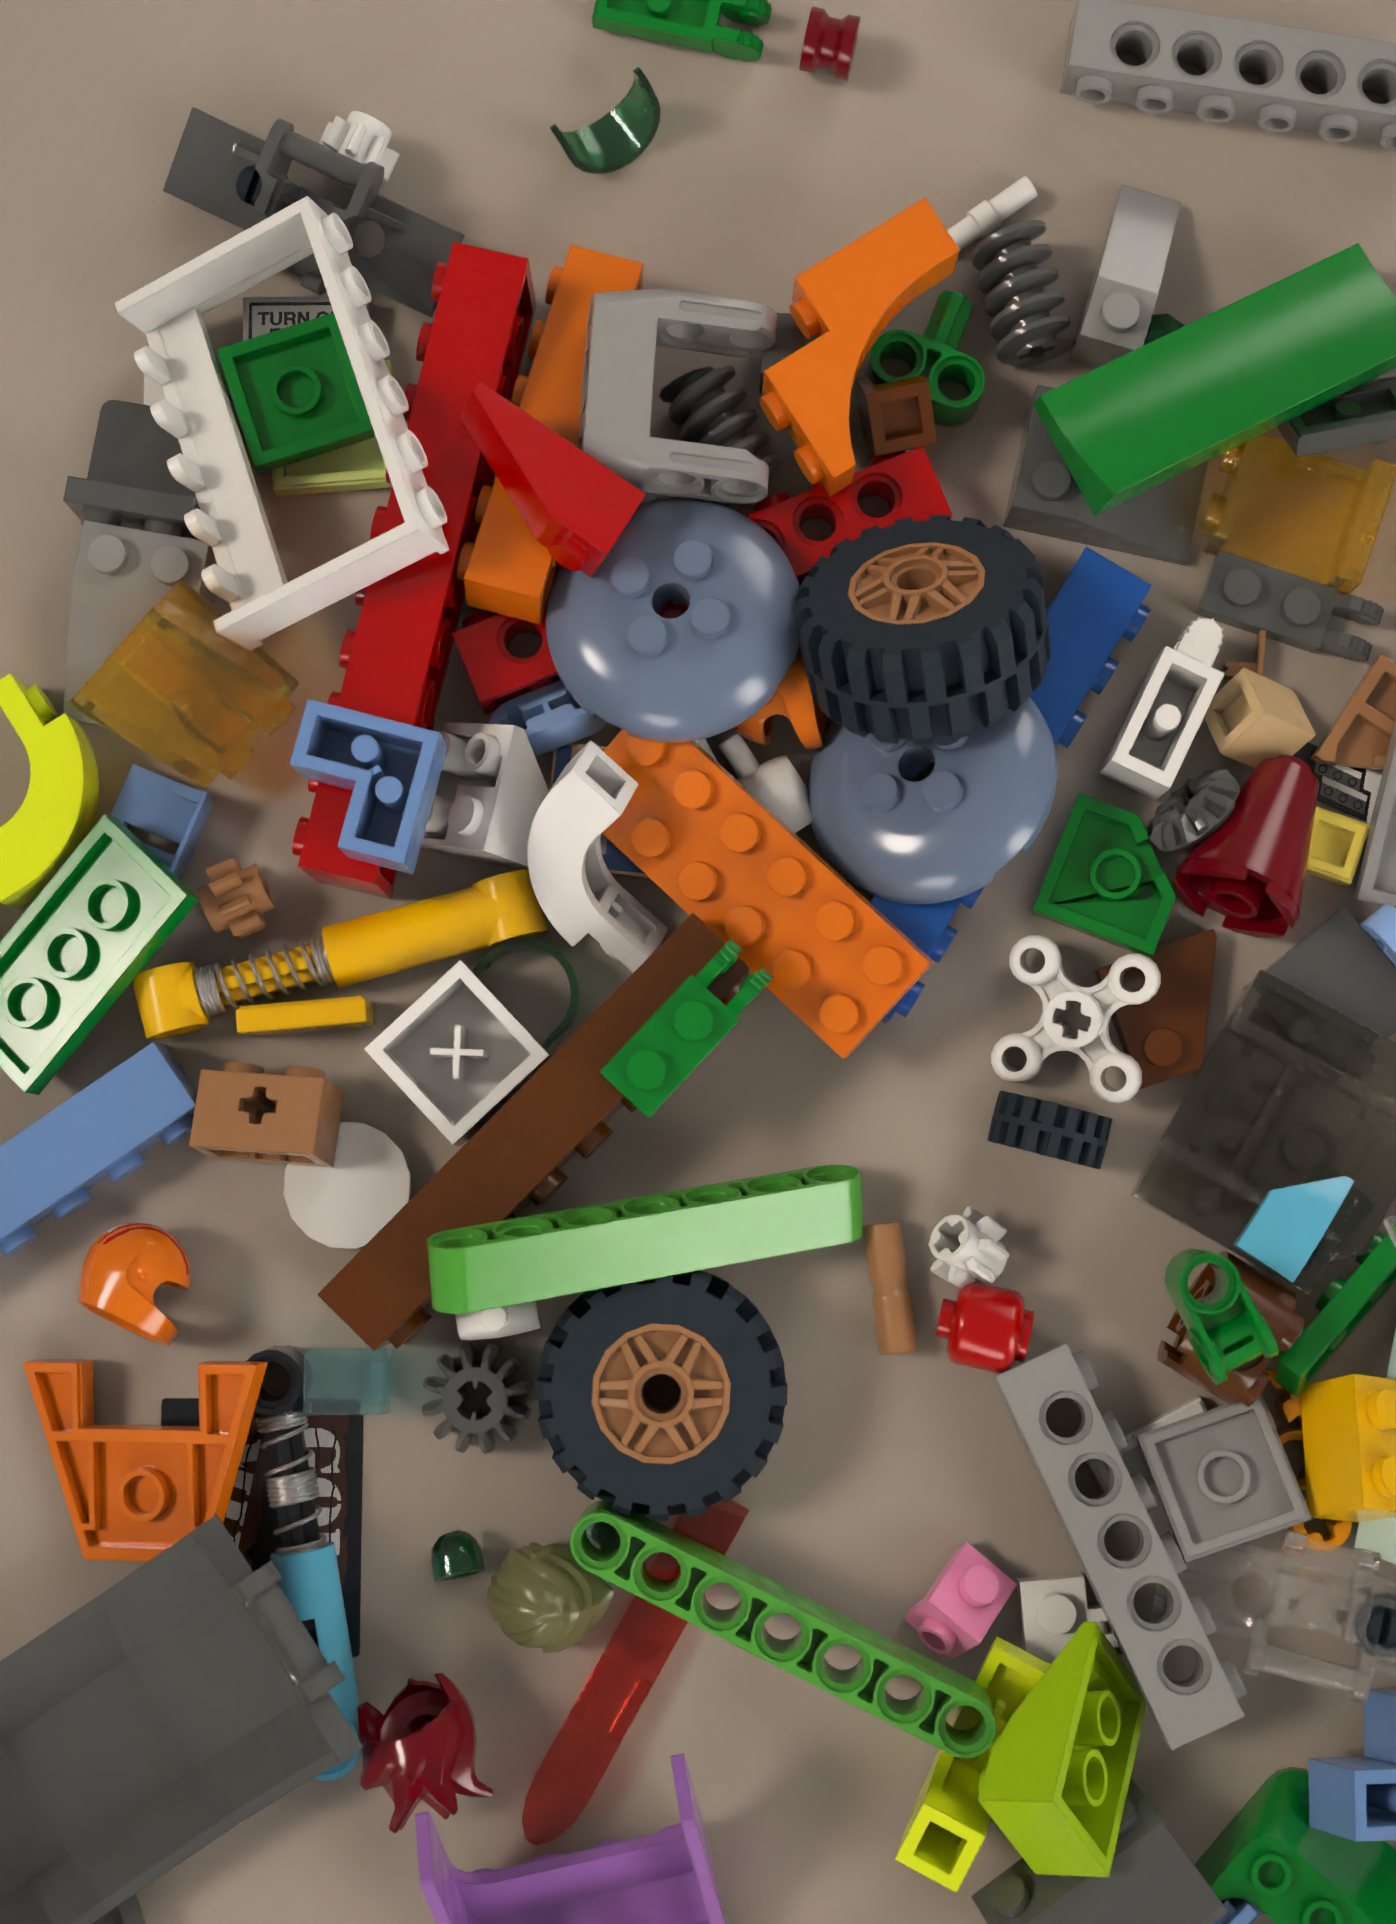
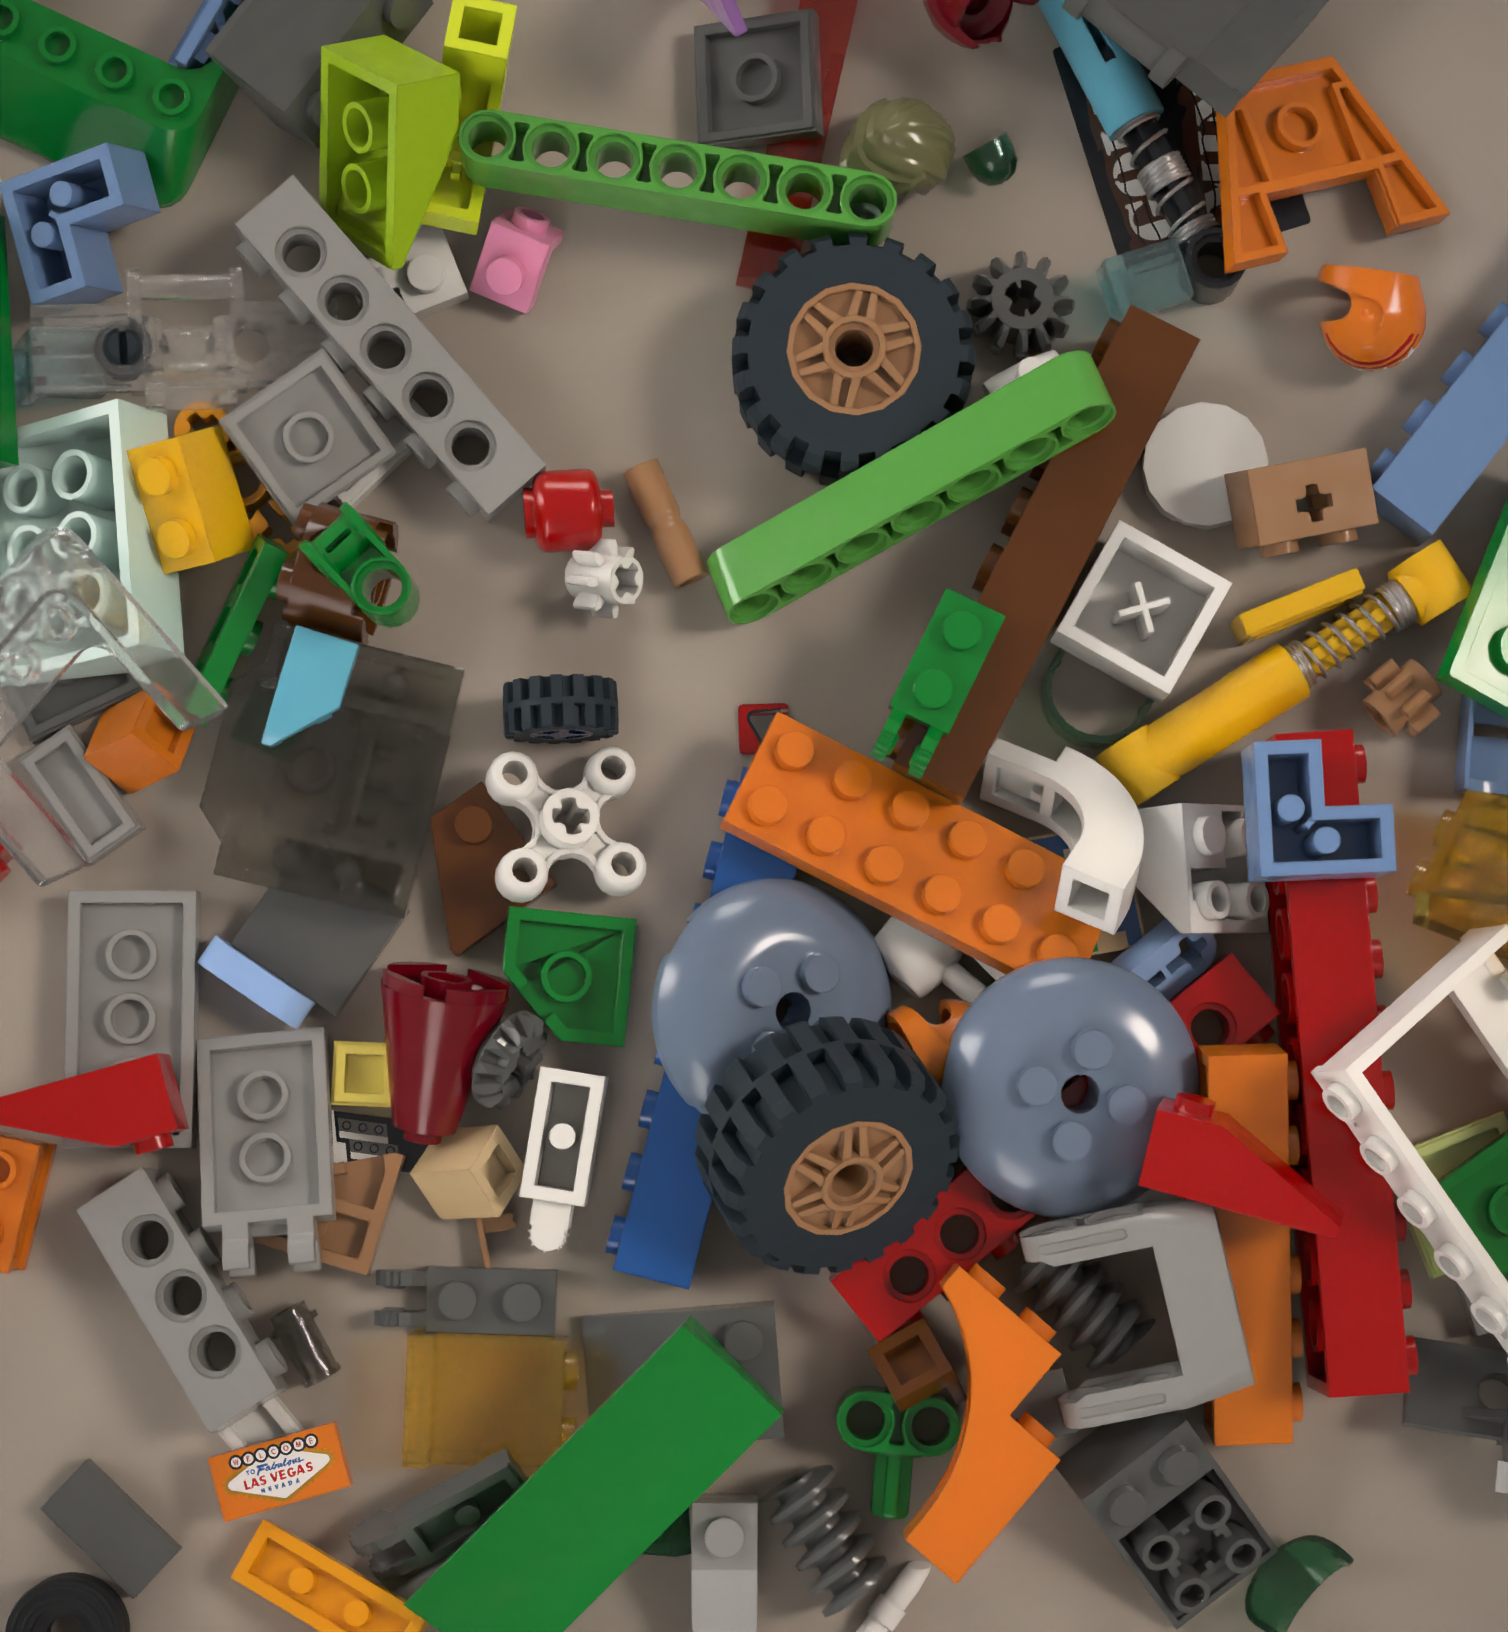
camera: 165 degrees right, 0 degrees up
(664, 1704) = (759, 83): none -> dark grey tile
(704, 222) = (1167, 1510): none -> dark grey slope
(858, 1068) = (754, 722): none -> sticker

